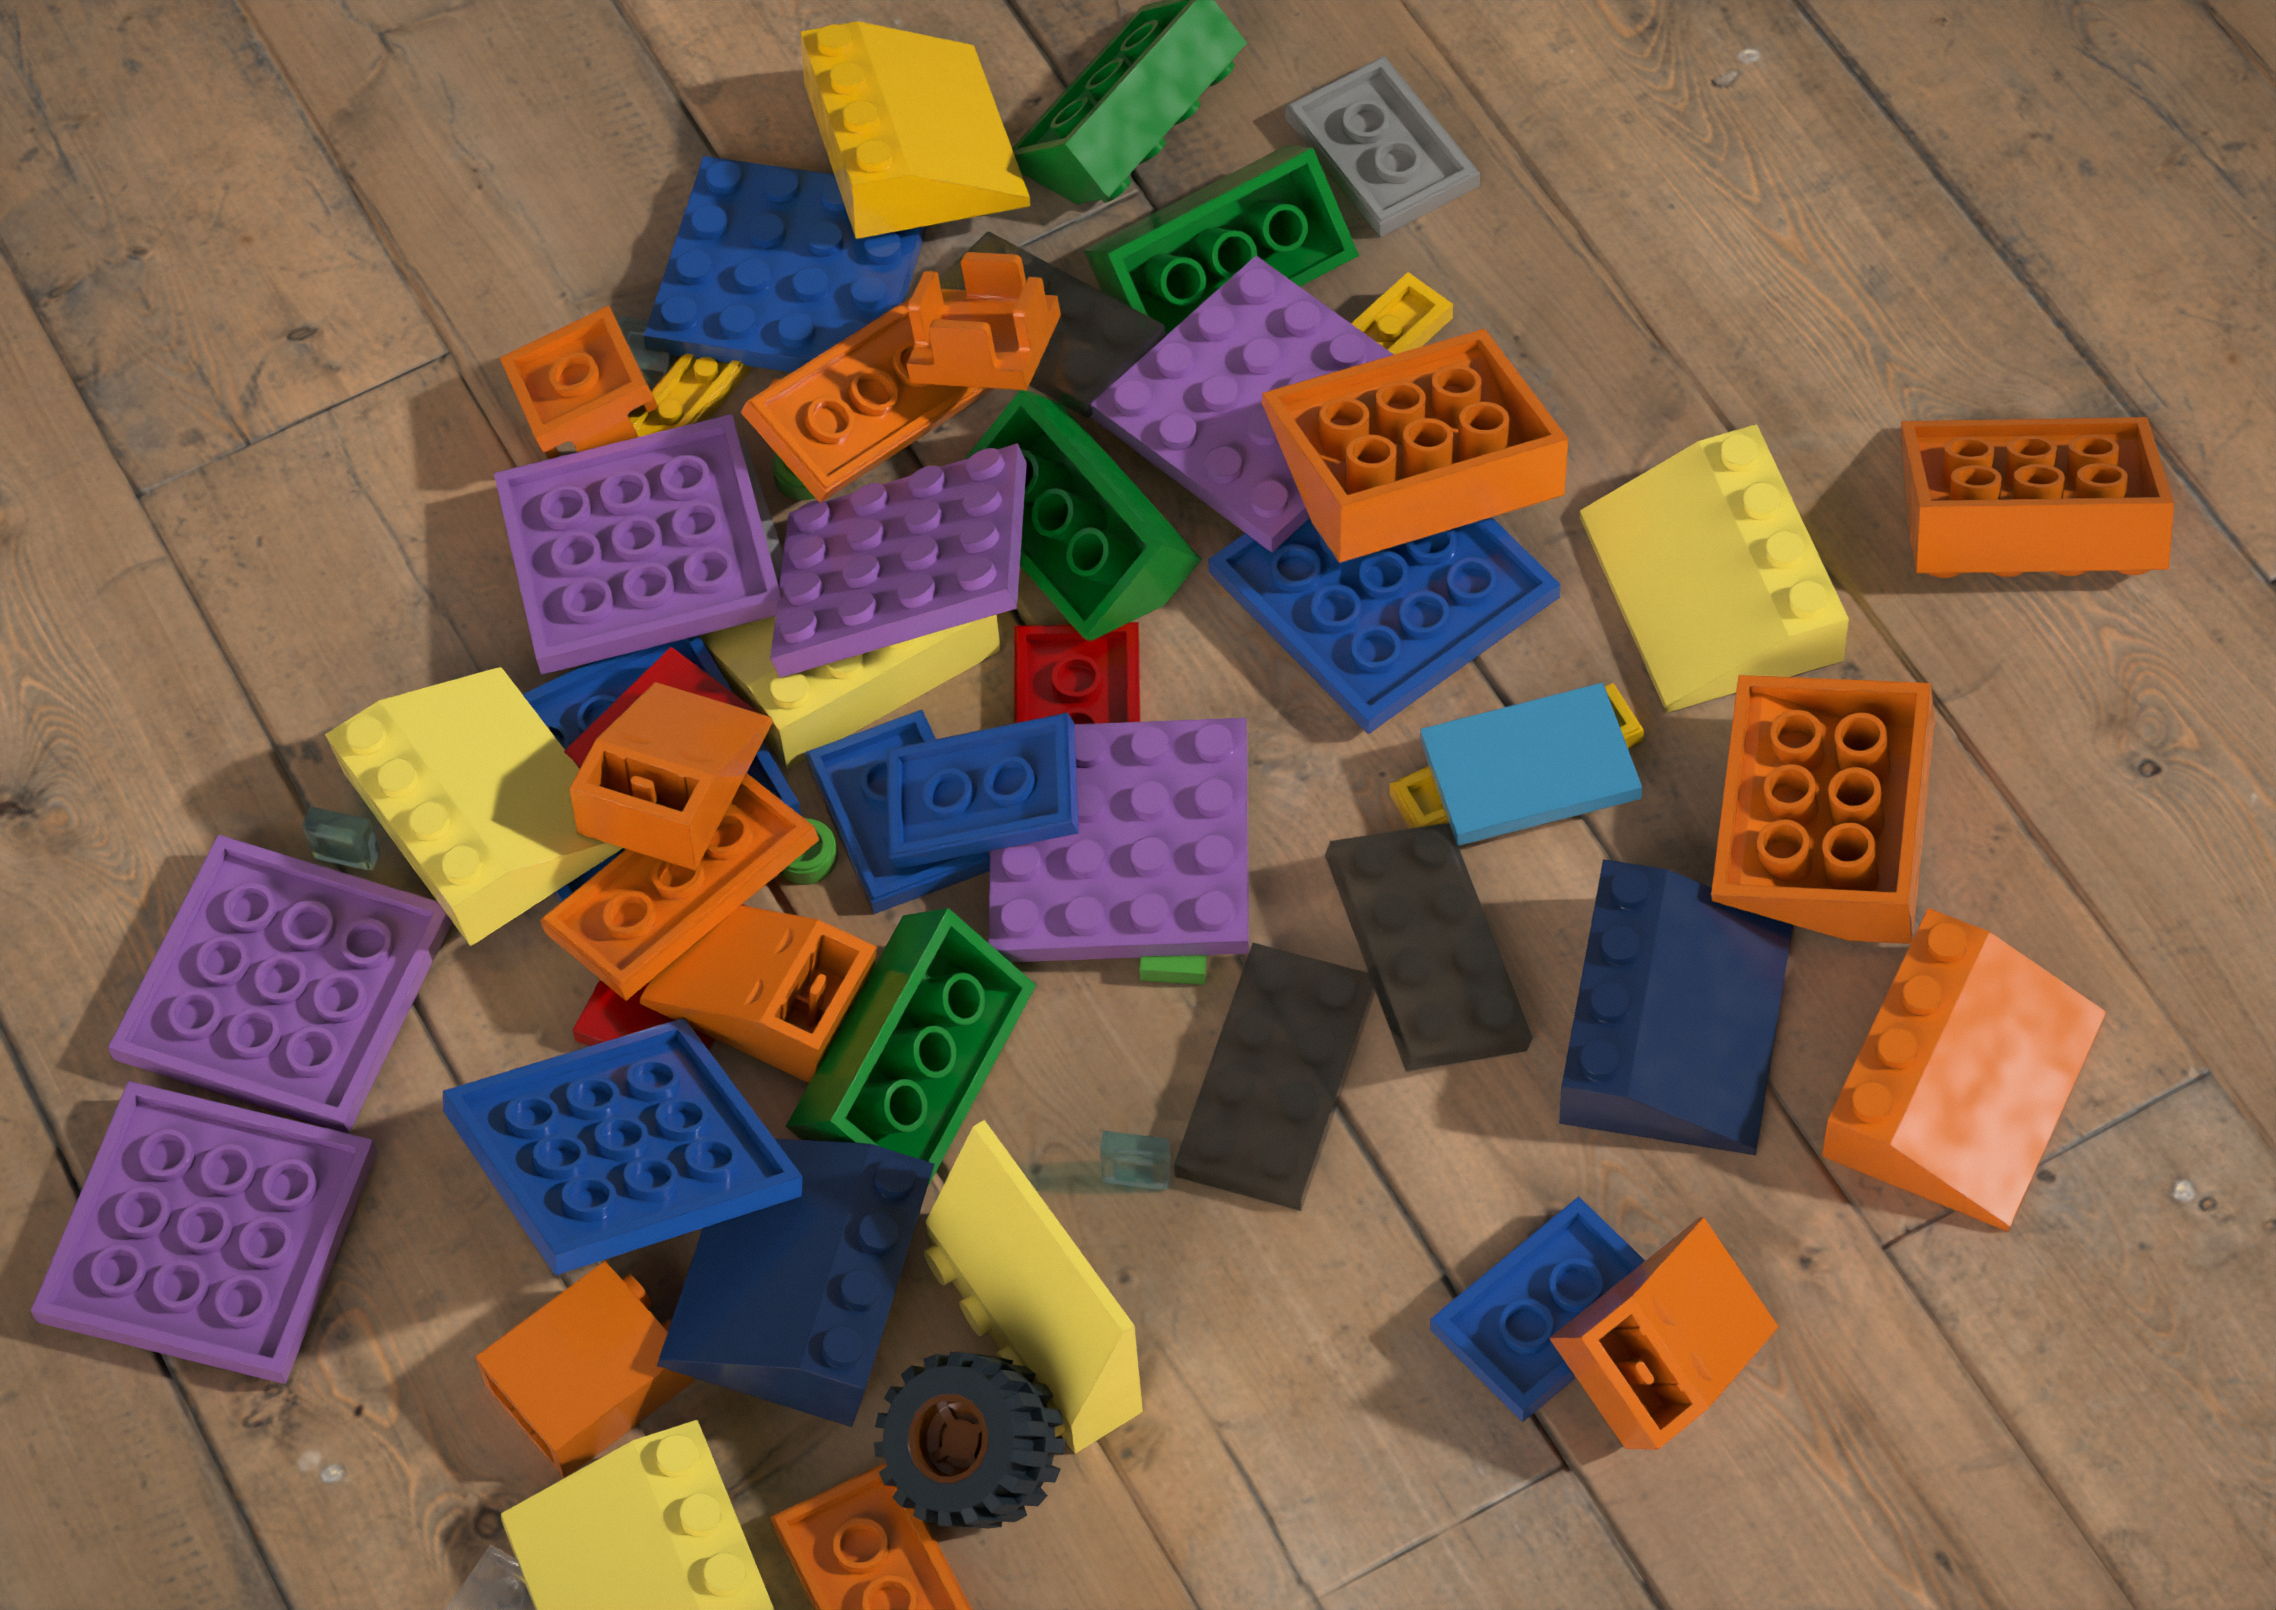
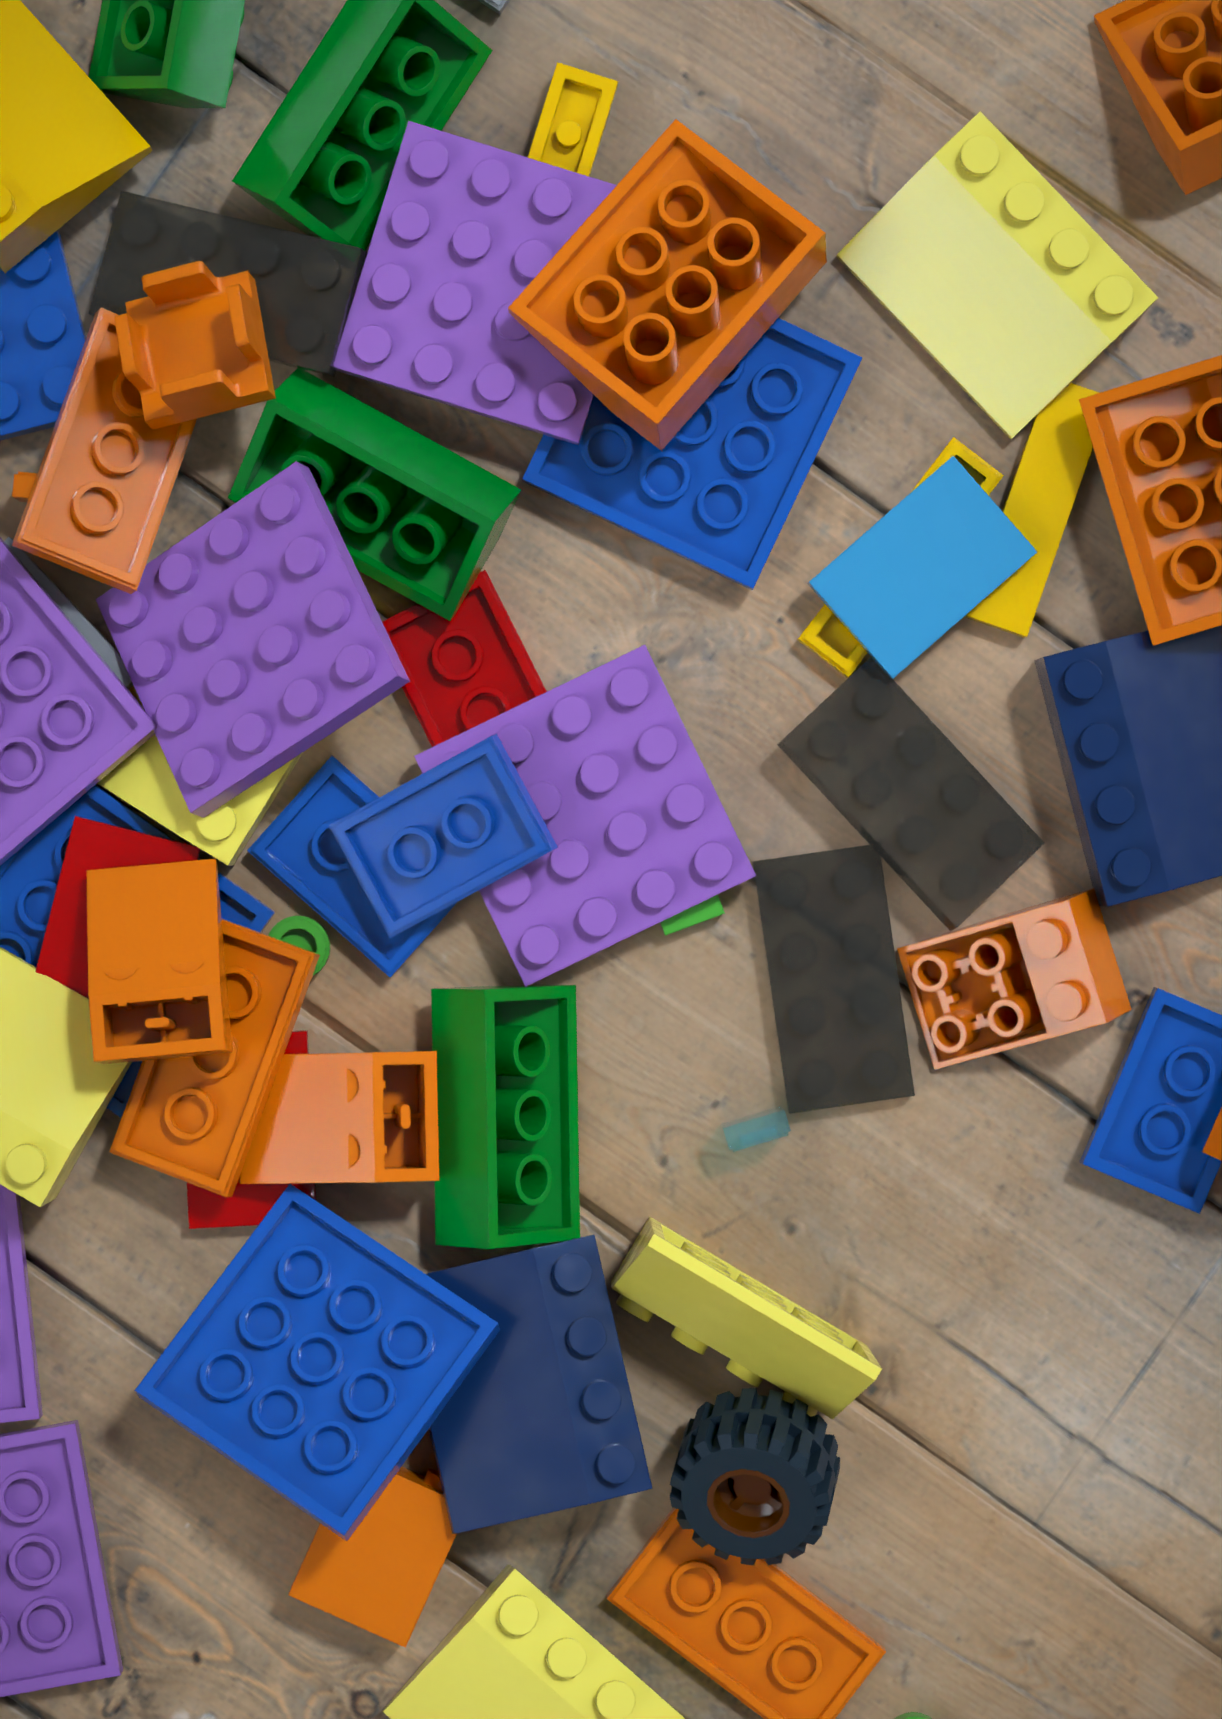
camera: 30 degrees left, 30 degrees up
(1450, 1137) = (1015, 979): none -> orange slope
(1668, 770) = (1040, 507): none -> yellow tile

